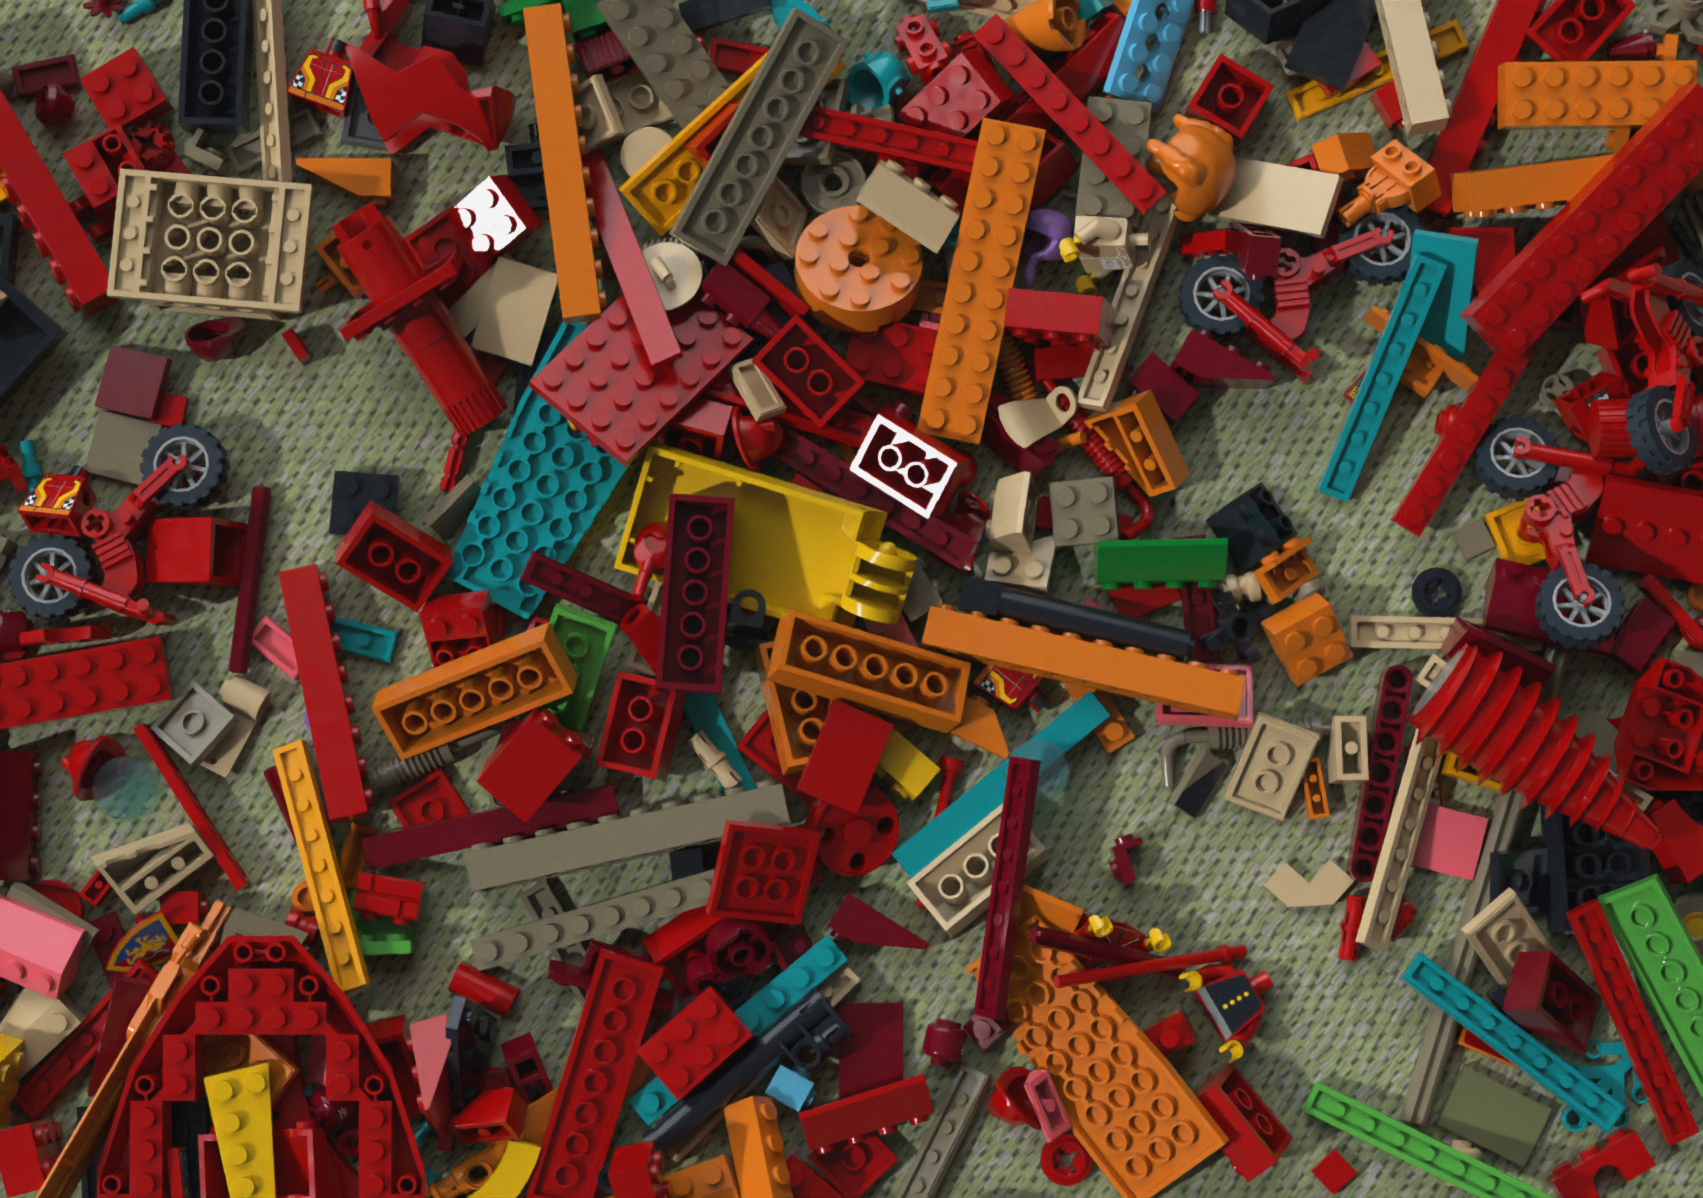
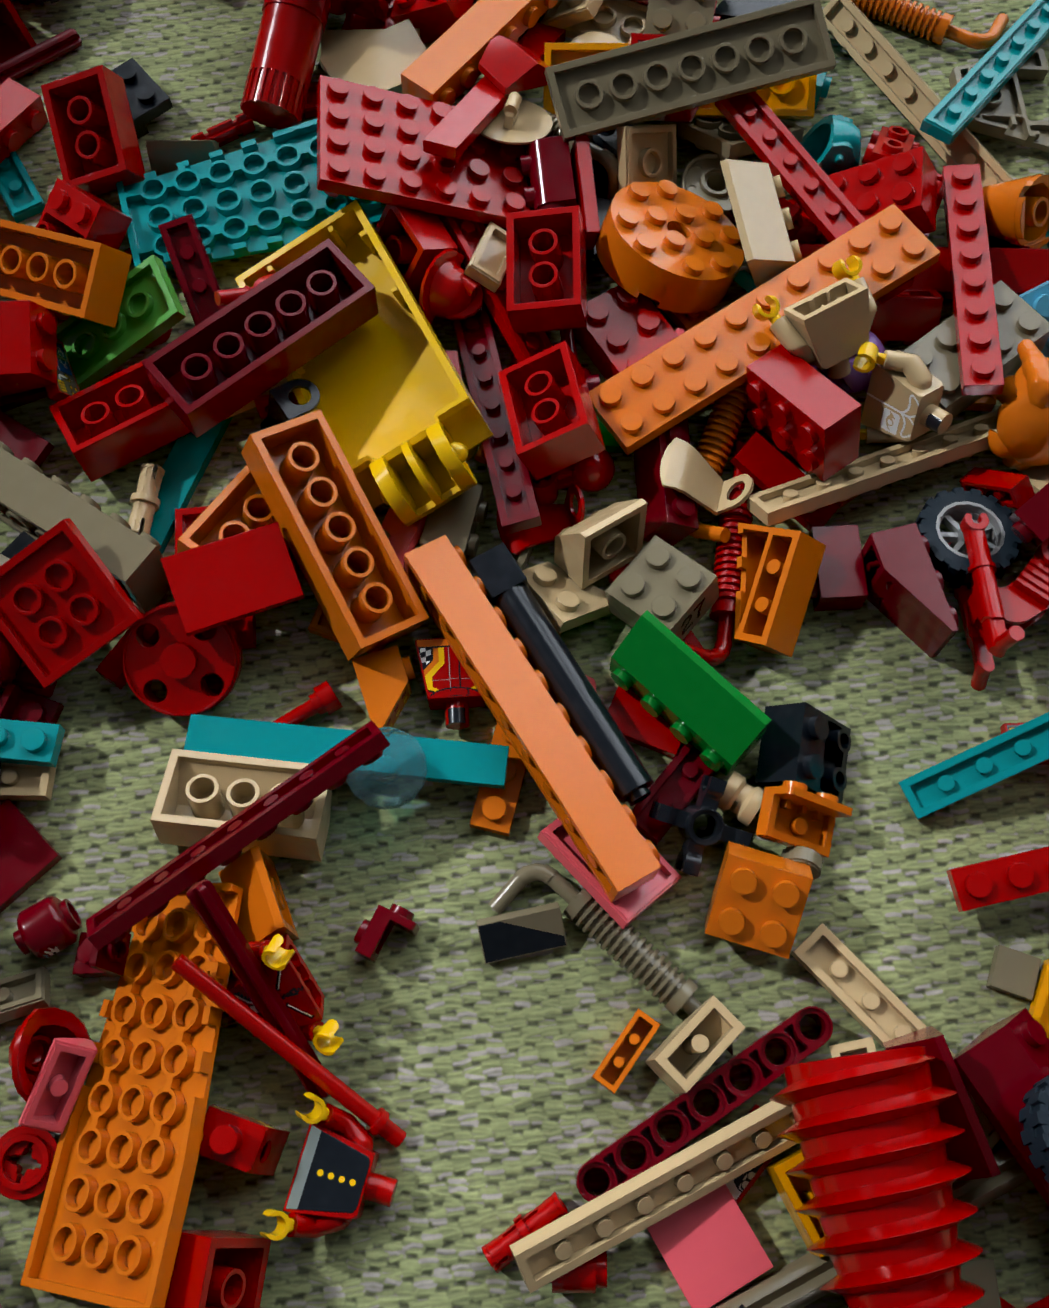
camera: 50 degrees right, 15 degrees down
(625, 233) = (512, 66): none -> red slope
(867, 926) = (105, 753): dark red slope -> none
(904, 766) = (284, 648): yellow brick -> none
(1027, 251) = (827, 324): none -> tan torso
(1271, 766) = (605, 985): tan tile -> none
(1322, 889) = (536, 1161): tan tile -> none
(1448, 585) = (948, 993): black gear -> none

